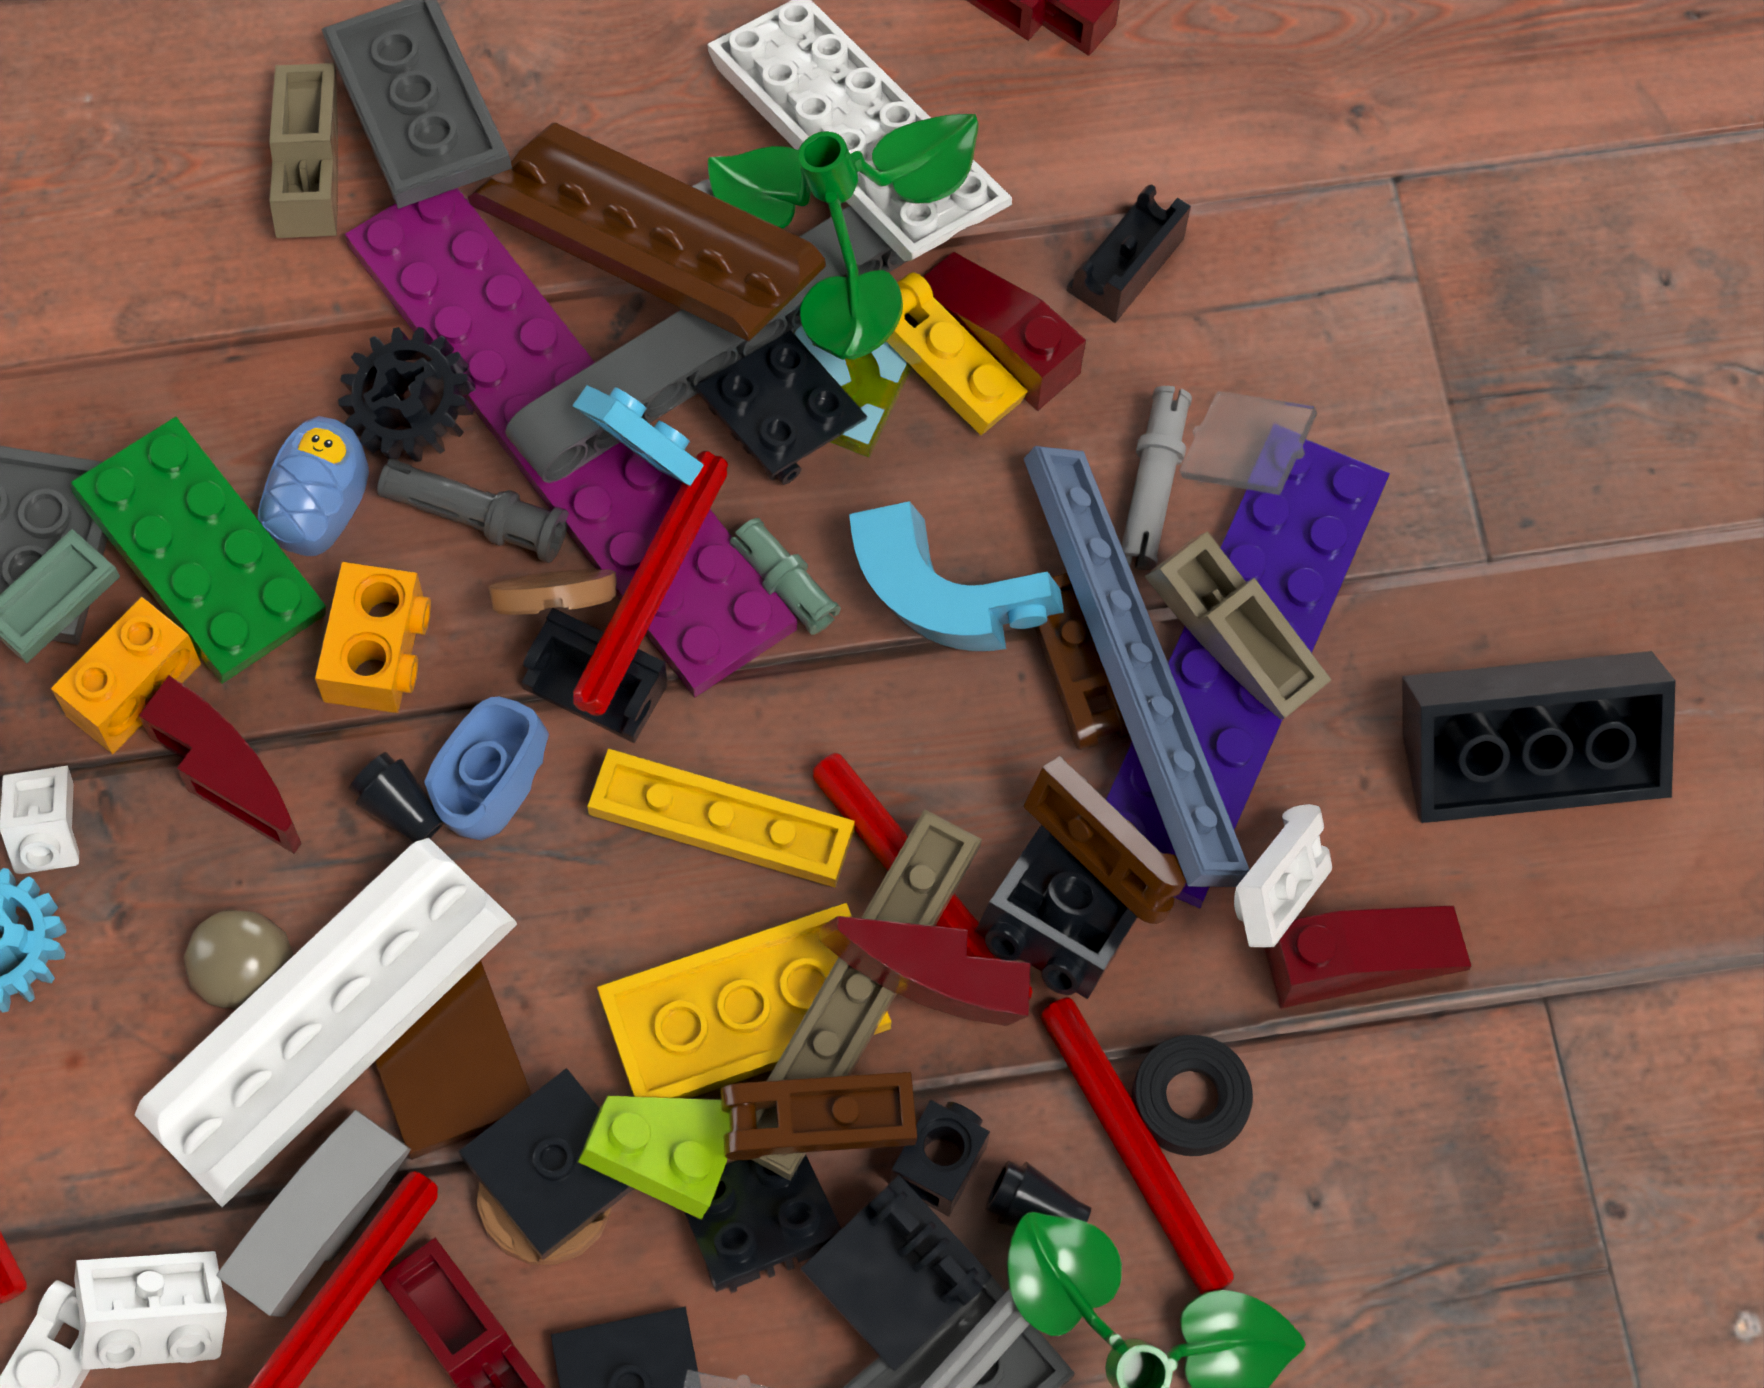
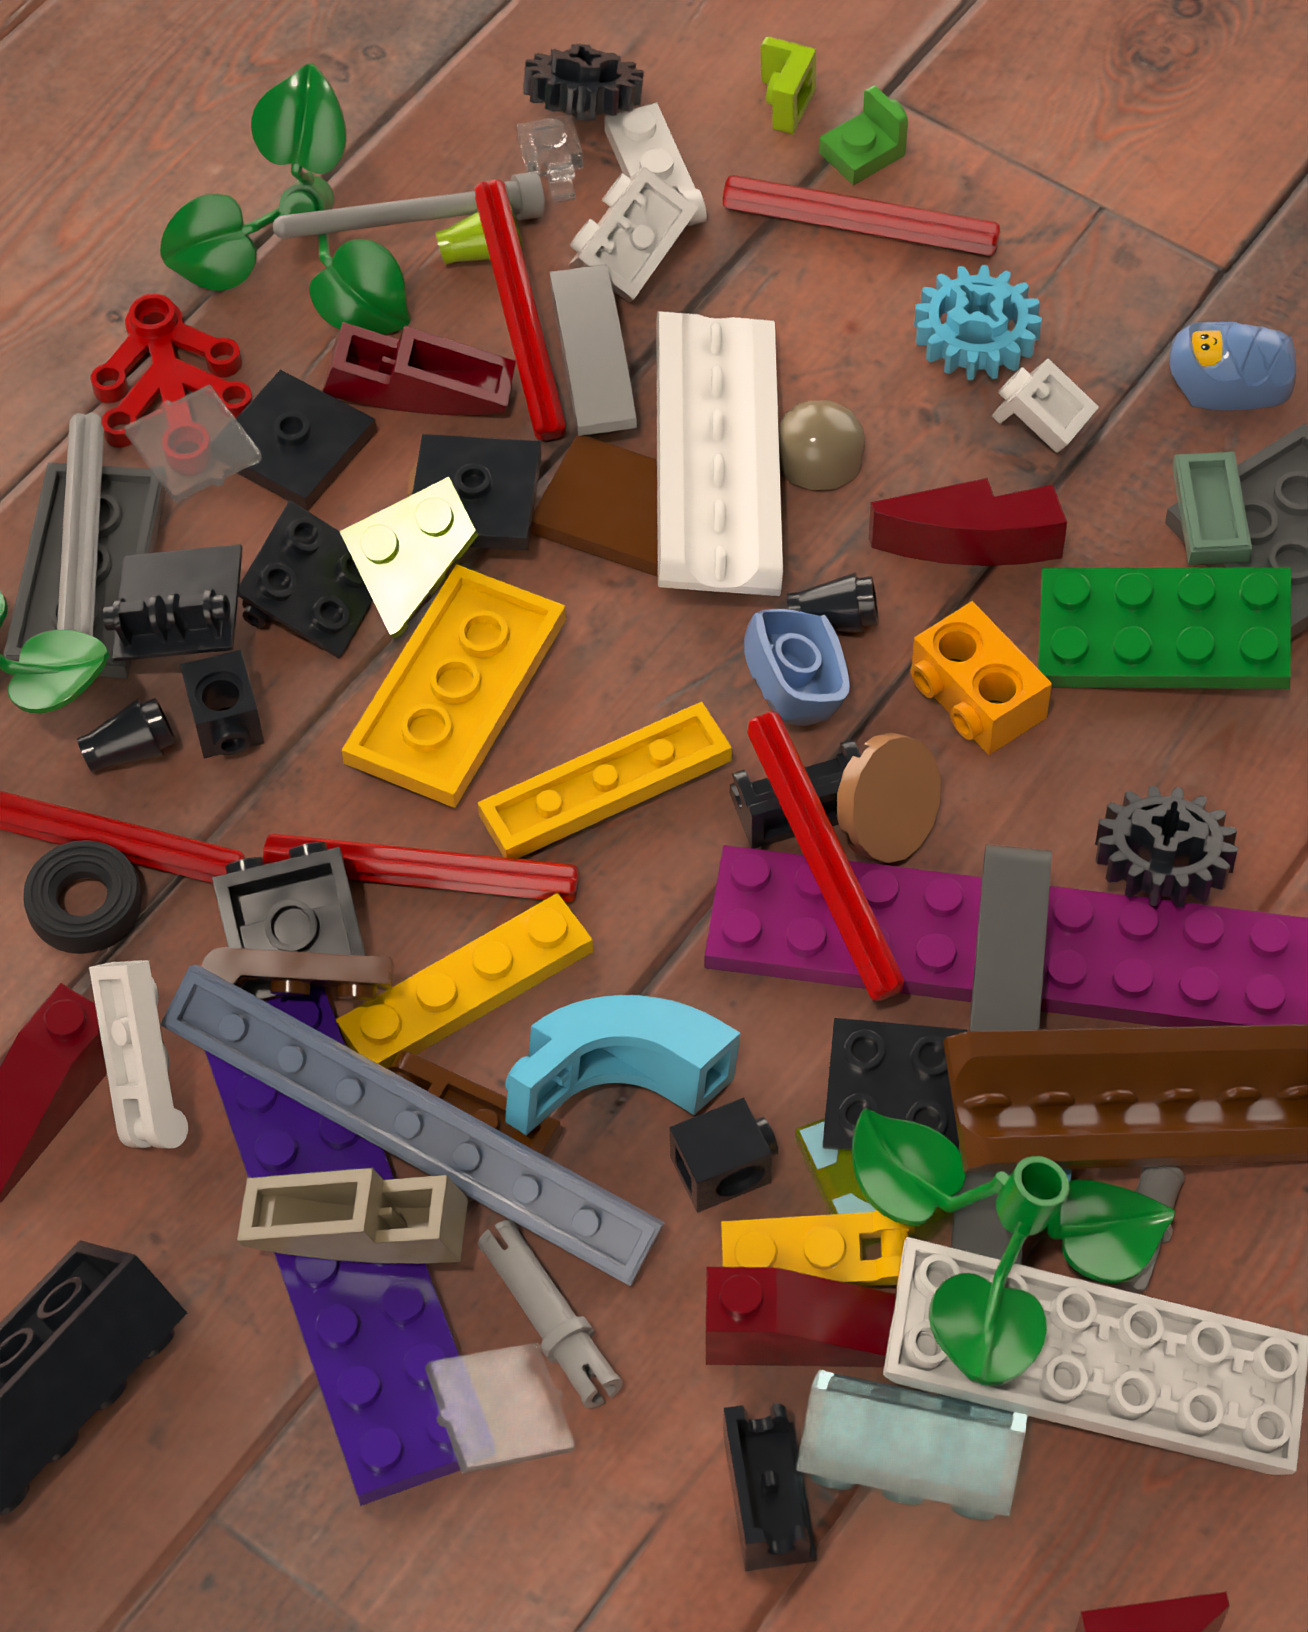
camera: 140 degrees right, 10 degrees down
(123, 672) = (1100, 508): light orange brick -> none
(314, 486) = (1149, 739): medium blue piece -> none
(499, 516) = (965, 844): dark grey pin -> none
(657, 445) = (945, 913): medium azure plate -> none
(785, 576) = (748, 977): sand green pin -> none
(820, 1114) = (315, 621): reddish brown plate -> none
(849, 1002) = (382, 745): dark tan tile -> none
(932, 968) = (336, 765): dark red slope -> none
(937, 469) = (722, 1154): none -> black brick
(962, 756) = (467, 983): none -> yellow plate
(1049, 219) = (911, 1445): none -> clear light blue brick

